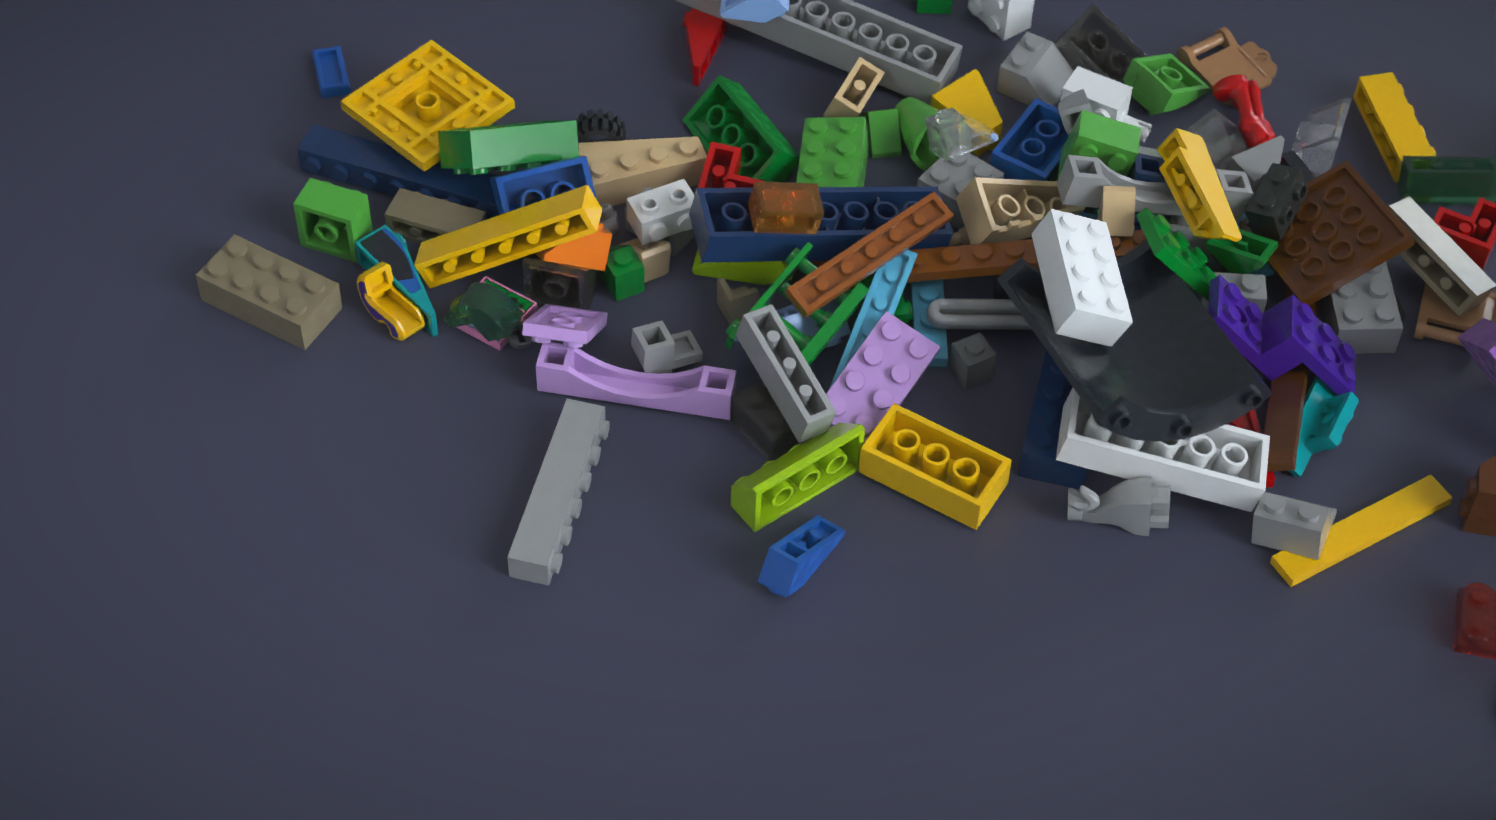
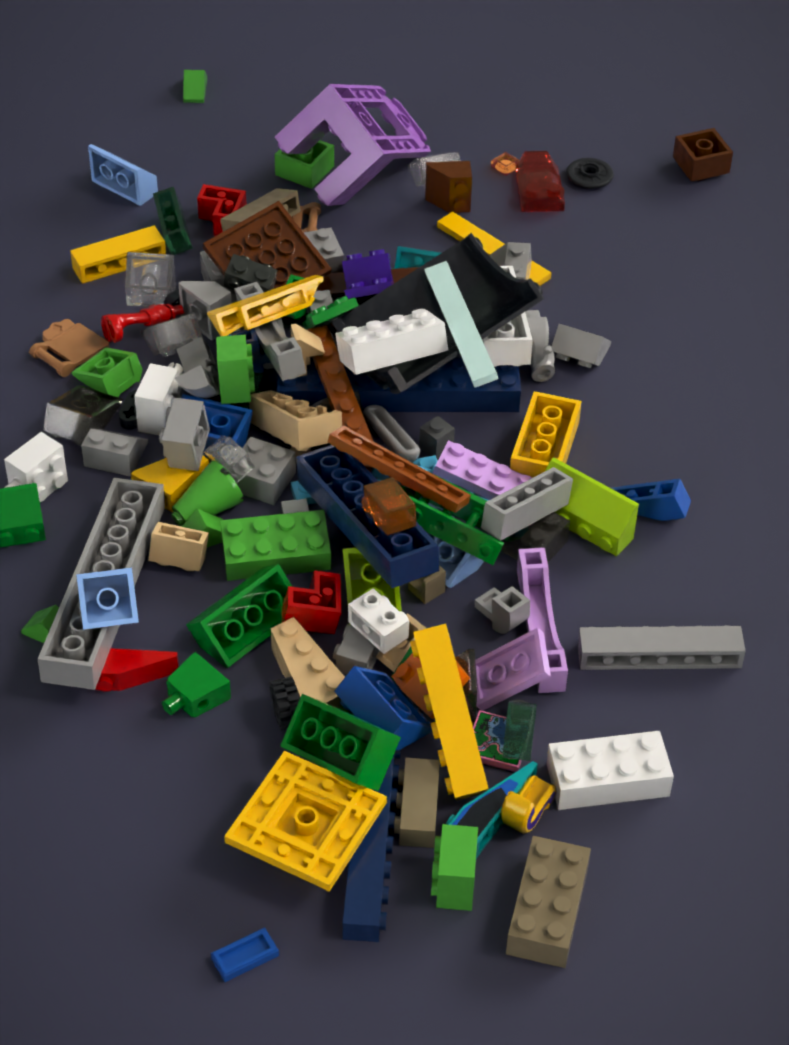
camera: 105 degrees left, 5 degrees down
(404, 388) = (609, 770): none -> white brick
(657, 83) = (196, 687): none -> green torso
(994, 91) = (185, 434): none -> light grey brick
(1088, 340) = (461, 324): none -> light aqua tile
(1123, 567) = (579, 345): none -> light grey slope

